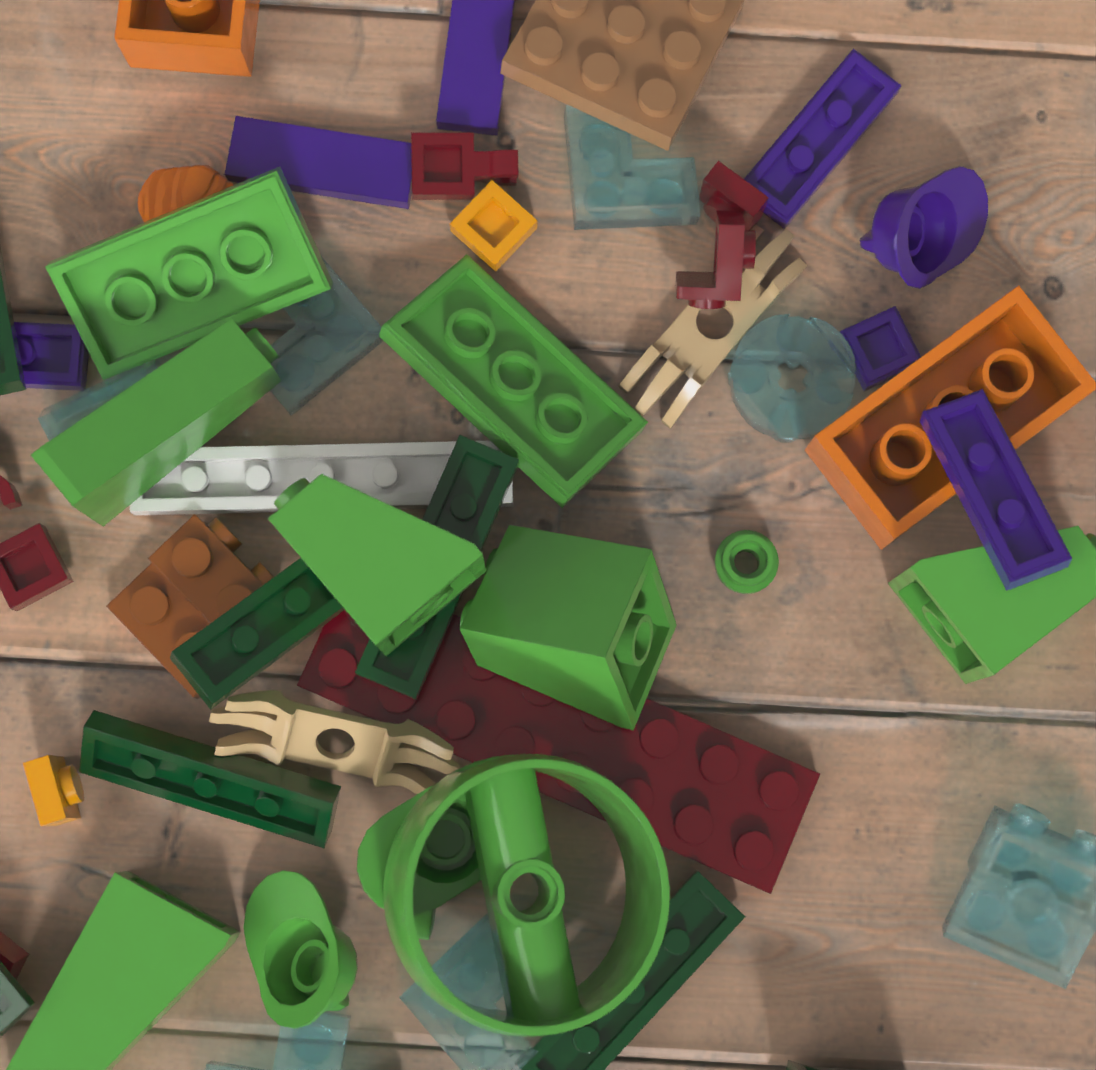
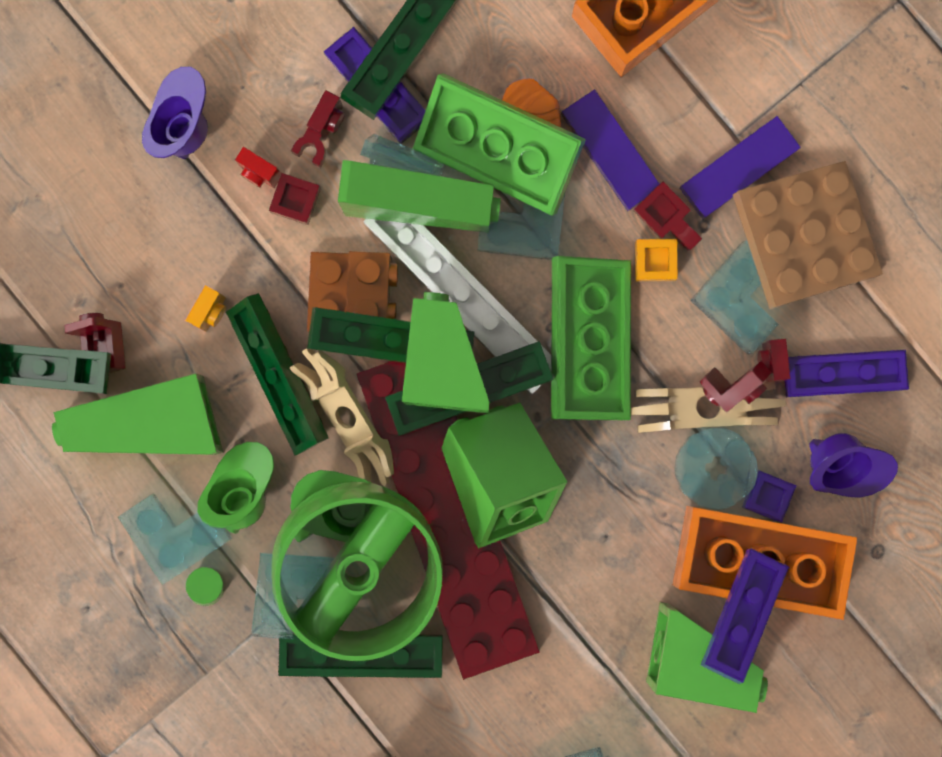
camera: 50 degrees right, 5 degrees up
(757, 545) = (620, 527): bright green plate -> none

